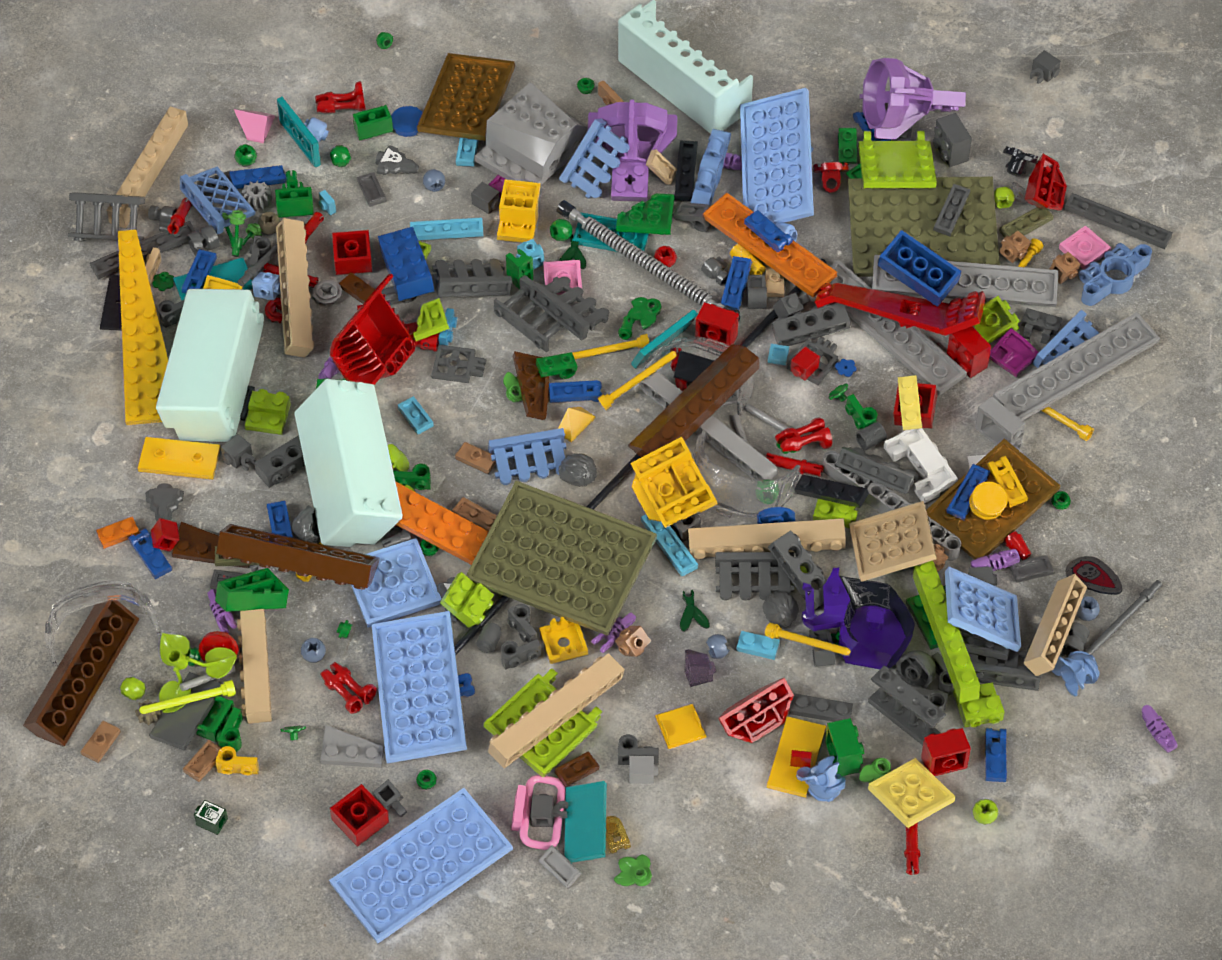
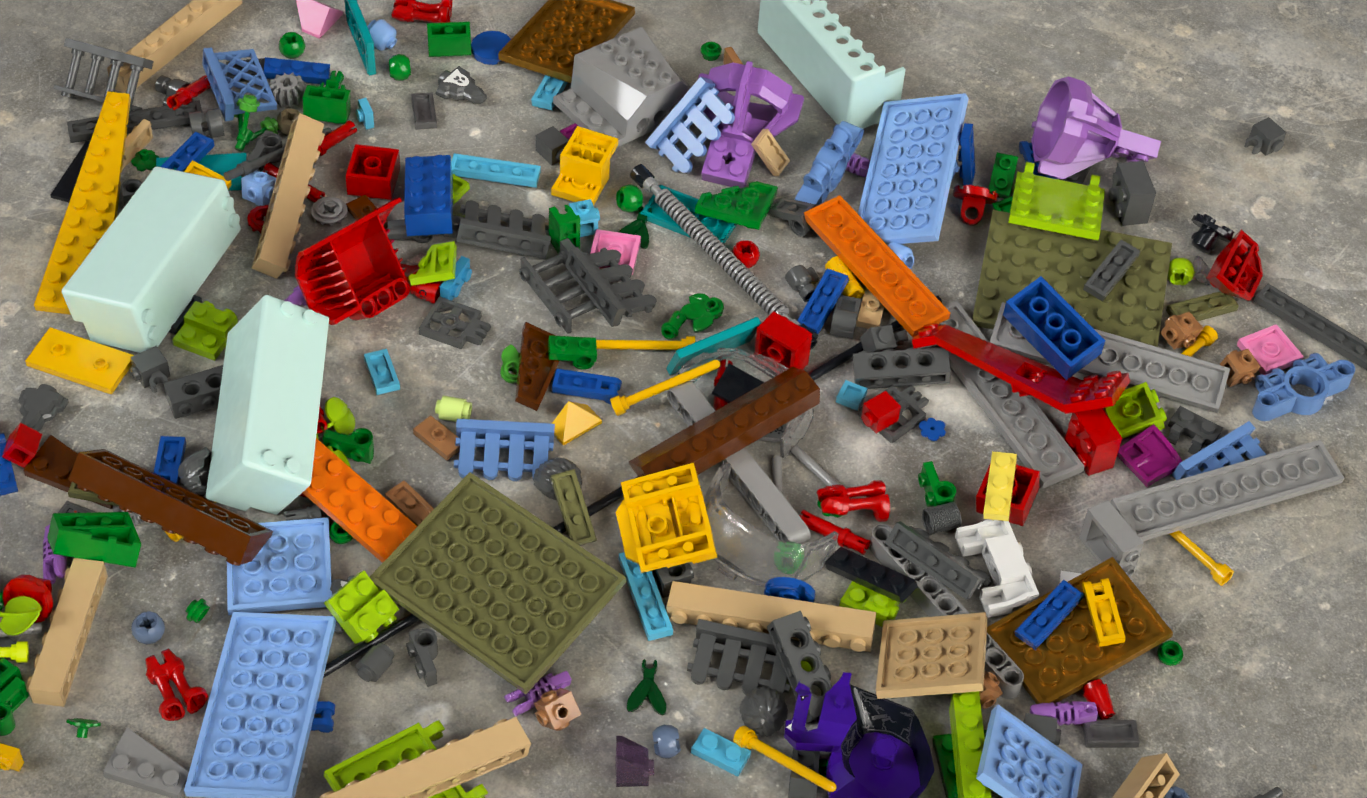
camera: 10 degrees right, 5 degrees down
(434, 180) = (498, 114): sand blue piece -> none
(480, 433) = (453, 408): none -> yellowish green brick
(521, 654) = (409, 693): dark grey plate -> none
(563, 629) = (468, 673): yellow piece -> none
(597, 489) = (573, 507): none -> olive tile
(685, 170) = (800, 163): black plate -> none
(767, 231) = (877, 247): blue plate -> none
(816, 137) = (967, 155): none -> blue plate
(839, 392) = (915, 457): green plant -> none
(988, 500) = (1072, 631): yellow head -> none
(1095, 575) = (1194, 761): shield -> none

